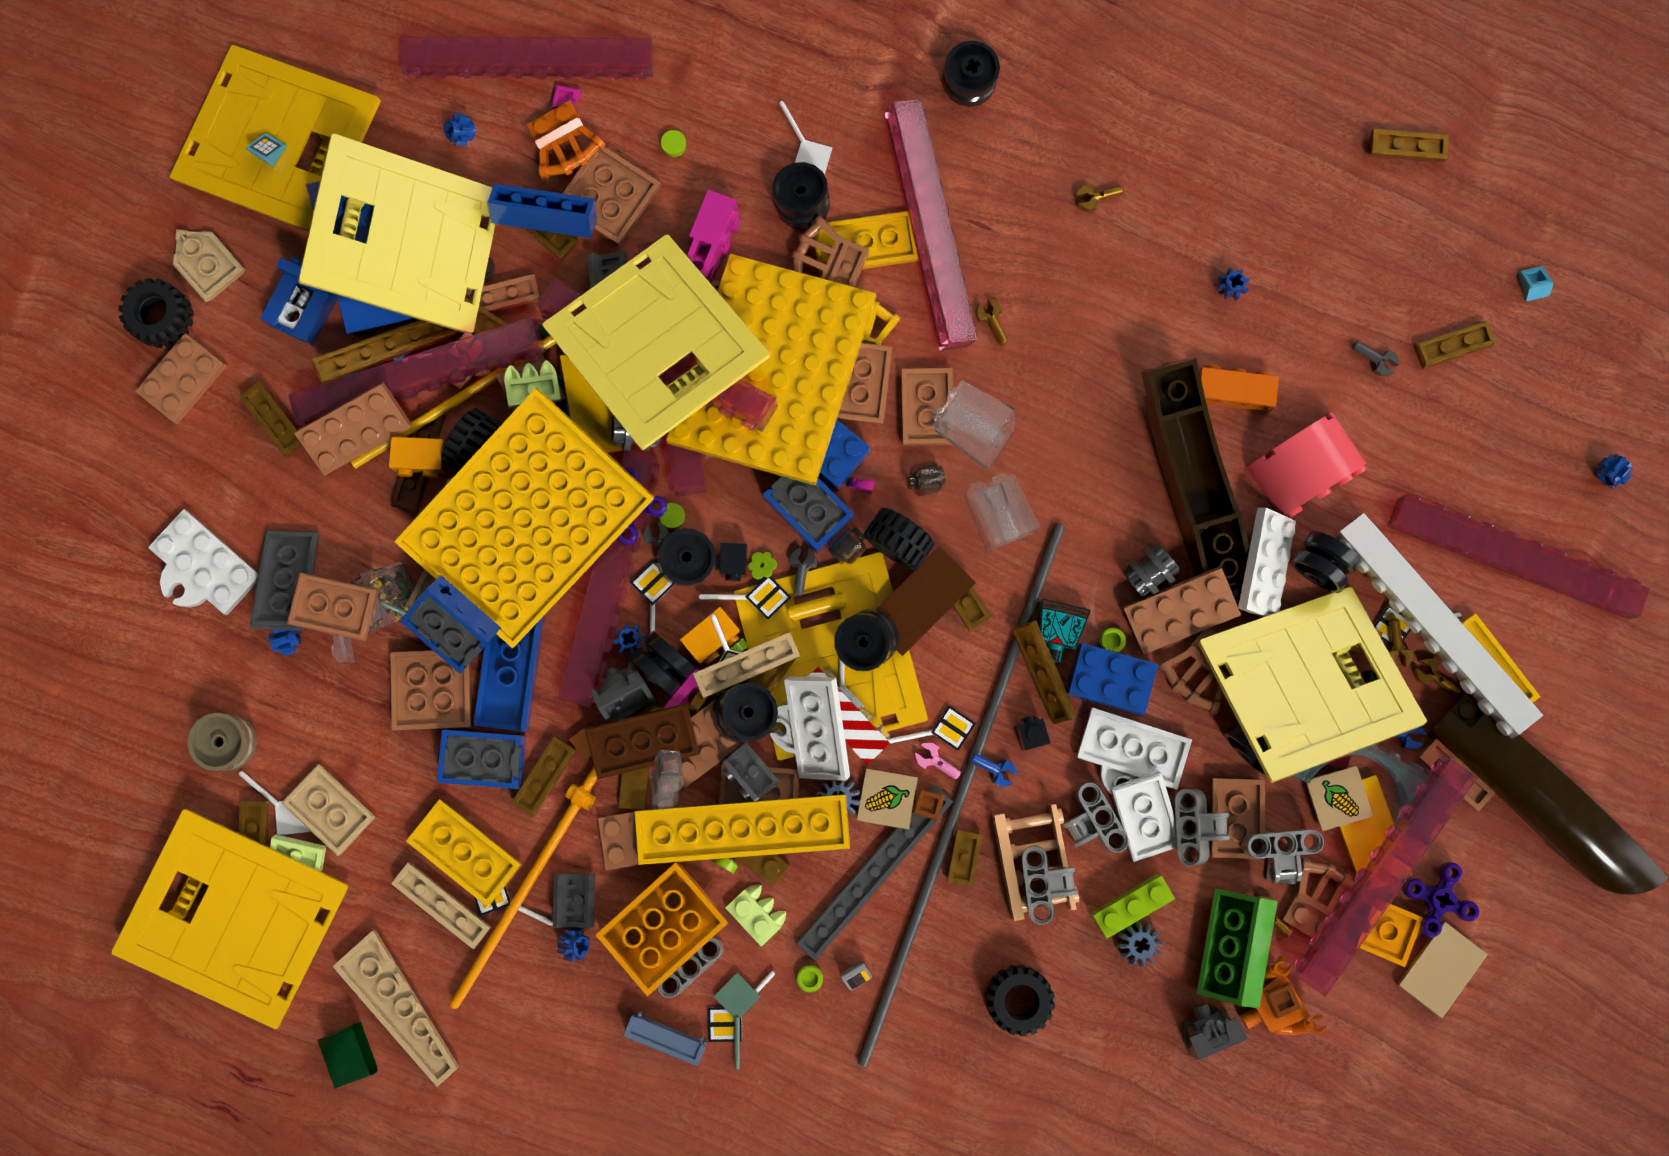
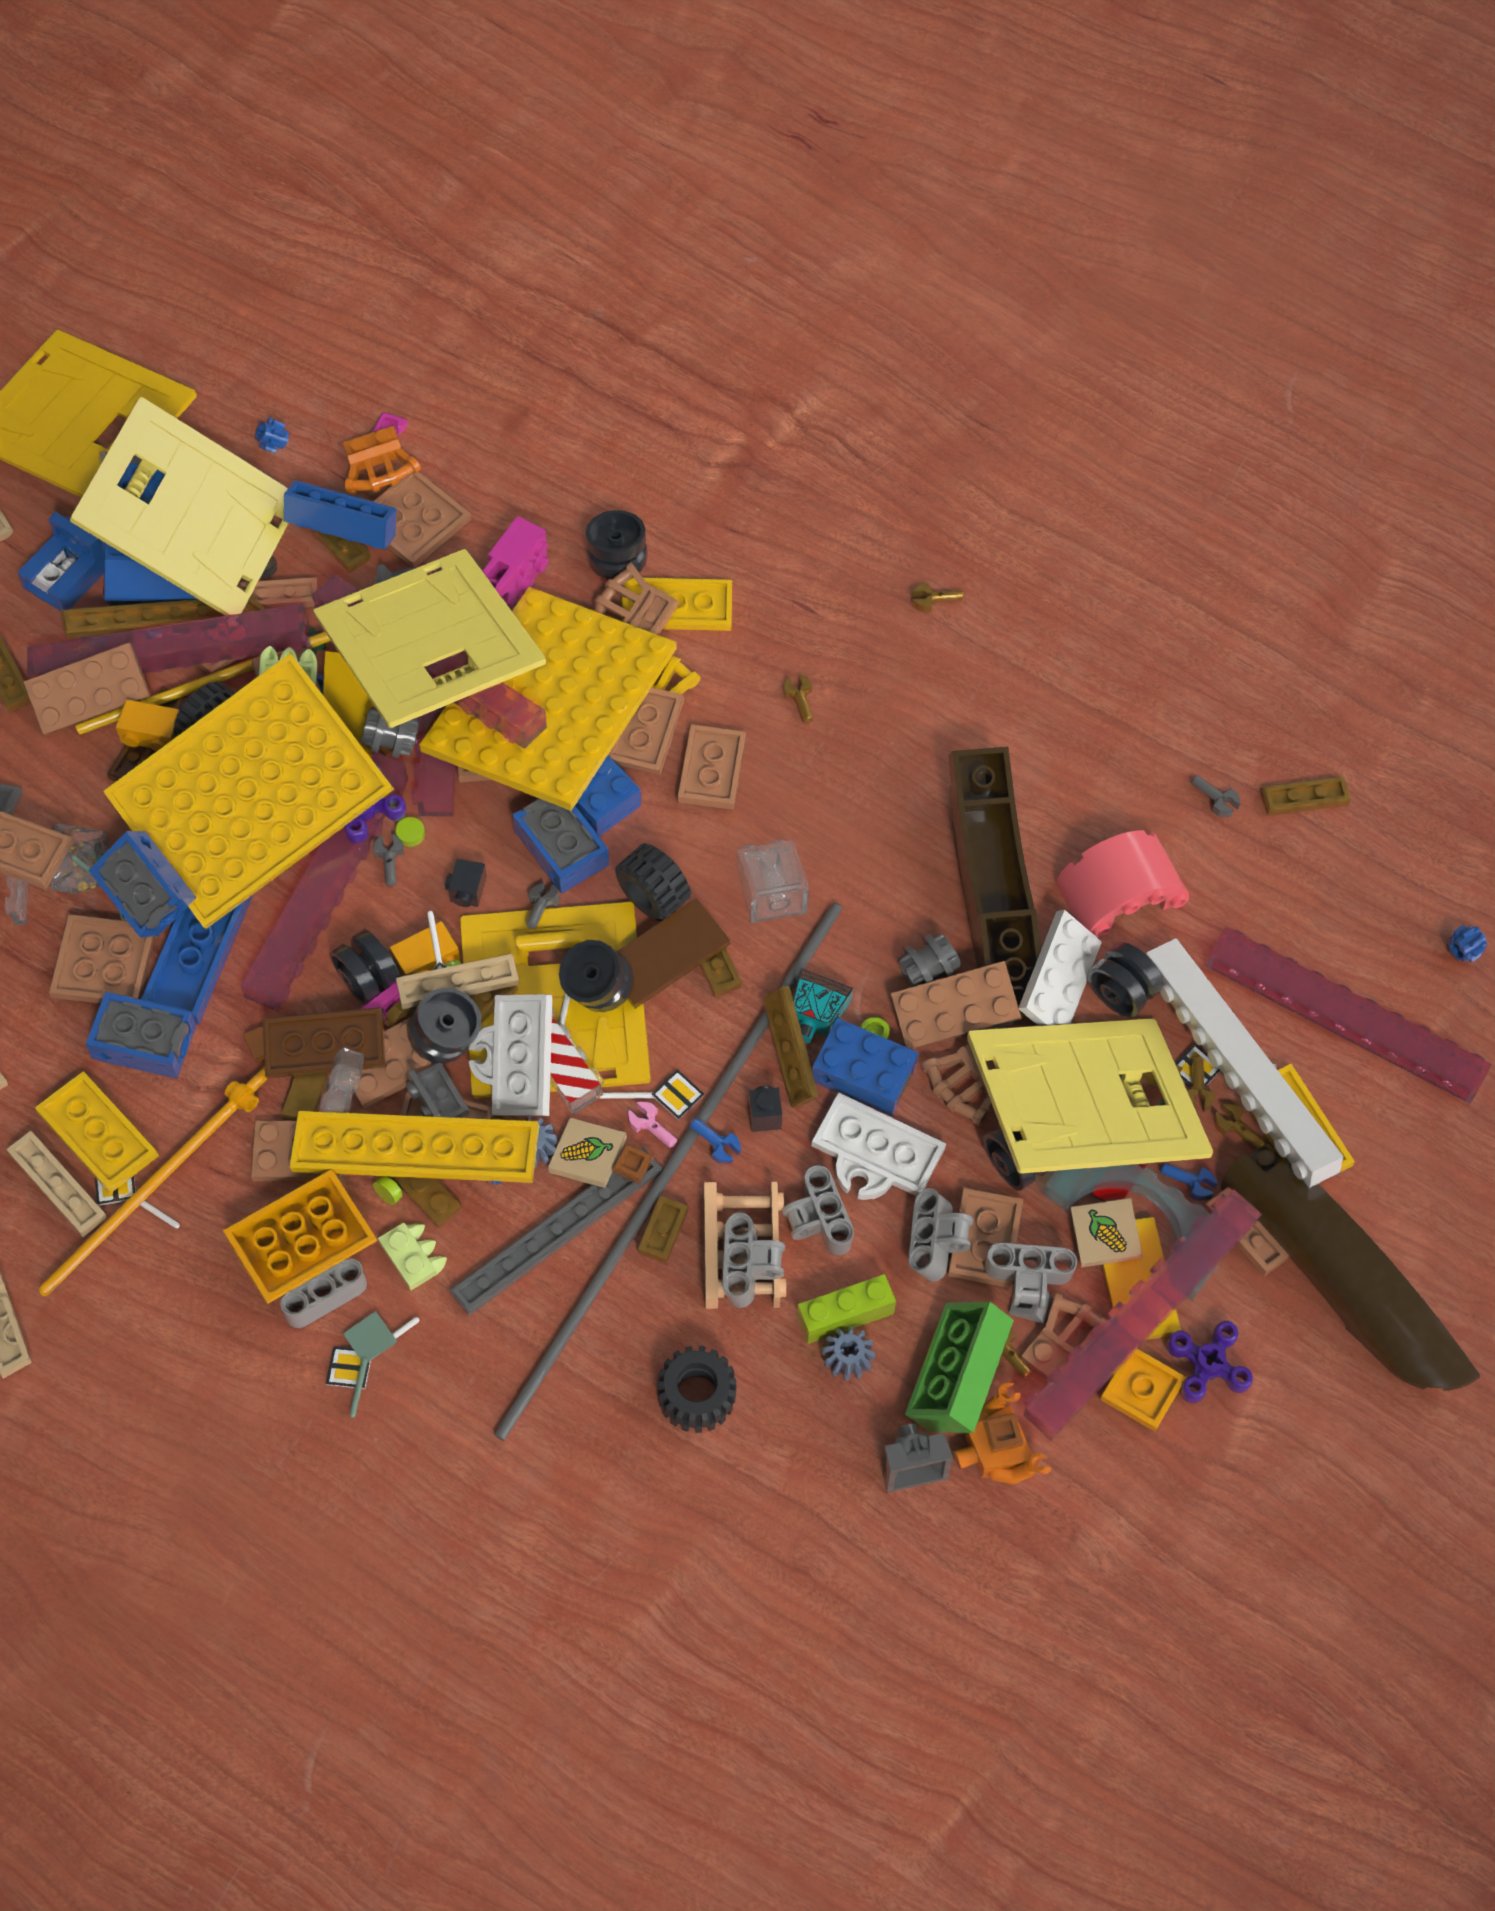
camera: 10 degrees right, 20 degrees down
(267, 149) = (67, 422): slope -> none
(526, 57) = (358, 382): clear pink brick -> none
(543, 776) = (205, 1068): pearl gold plate -> none
(573, 900) = (207, 1201): flat silver bracket -> none
(573, 944) = (195, 1246): blue gear -> none
(622, 694) = (314, 989): dark grey brick -> none
(636, 636) = (332, 939): blue gear -> none
(652, 588) = (373, 897): piece -> none
(665, 1039) = (276, 1367): sand blue container -> none
(672, 566) = (414, 867): black wheel -> none
(673, 143) = (493, 483): lime tile -> none
(758, 561) = (498, 894): lime plant -> none
(765, 597) = (494, 926): piece -> none
(809, 151) = (645, 513): white piece -> none
(809, 978) = (458, 1332): lime tile -> none
(847, 545) = (595, 886): clear smoke head -> none
(856, 975) = (512, 1335): slope -> none
(863, 485) = (626, 833): dark pink tile -> none
(925, 478) = (696, 834): clear smoke head -> none
(931, 225) = (750, 596): clear pink brick -> none
(971, 73) = (819, 462): black wheel -> none
(975, 423) = (761, 785): clear slope -> none
(1146, 815) = (879, 1215): white tile -> none
(1226, 287) = (1067, 698): blue gear -> none
(1238, 388) = (1056, 799): orange brick -> none
(1408, 145) = (1280, 597): pearl gold plate -> none
(1442, 970) = (1202, 1443): tan tile -> none
(1535, 283) = (1403, 750): medium azure slope -> none

